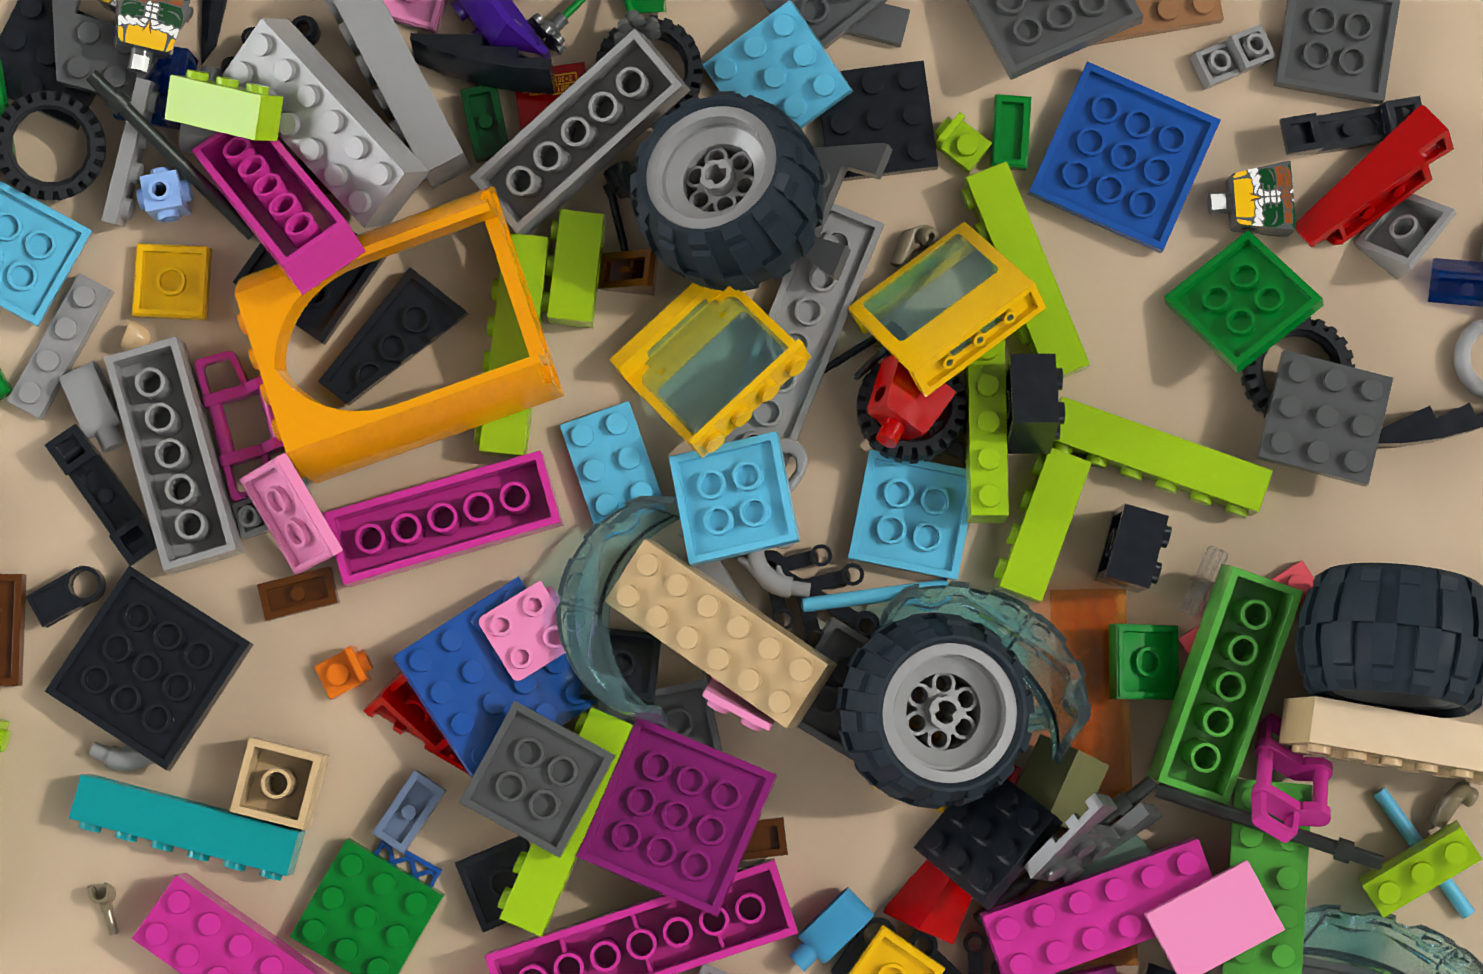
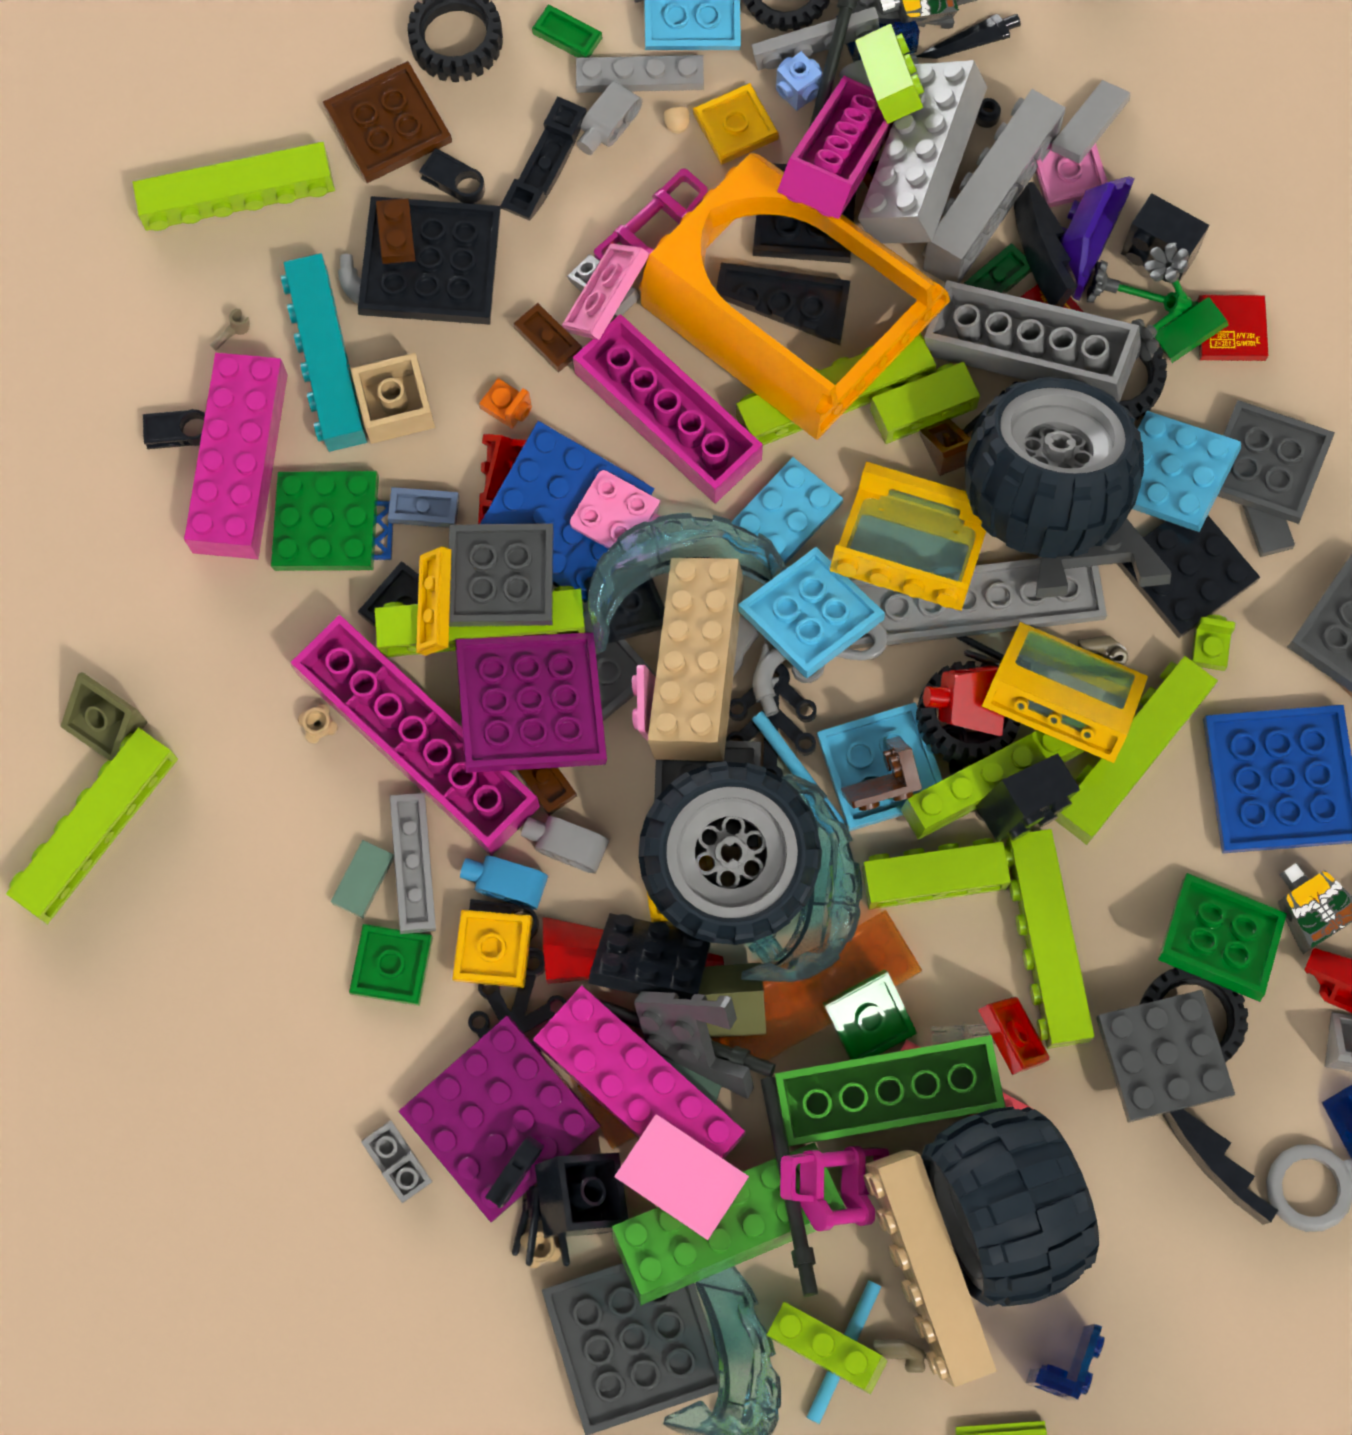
camera: 65 degrees right, 10 degrees down
(100, 687) = (395, 231): none -> reddish brown plate
(174, 455) = (602, 190): light grey brick -> none
(529, 858) = (433, 601): none -> yellow tile
(825, 852) = (566, 842): none -> light grey piece
(944, 526) = (897, 785): none -> bracket
(1011, 131) = (1247, 678): green tile -> none
(1133, 548) = (958, 954): black brick -> none
(1232, 541) = (1014, 1035): none -> red tile

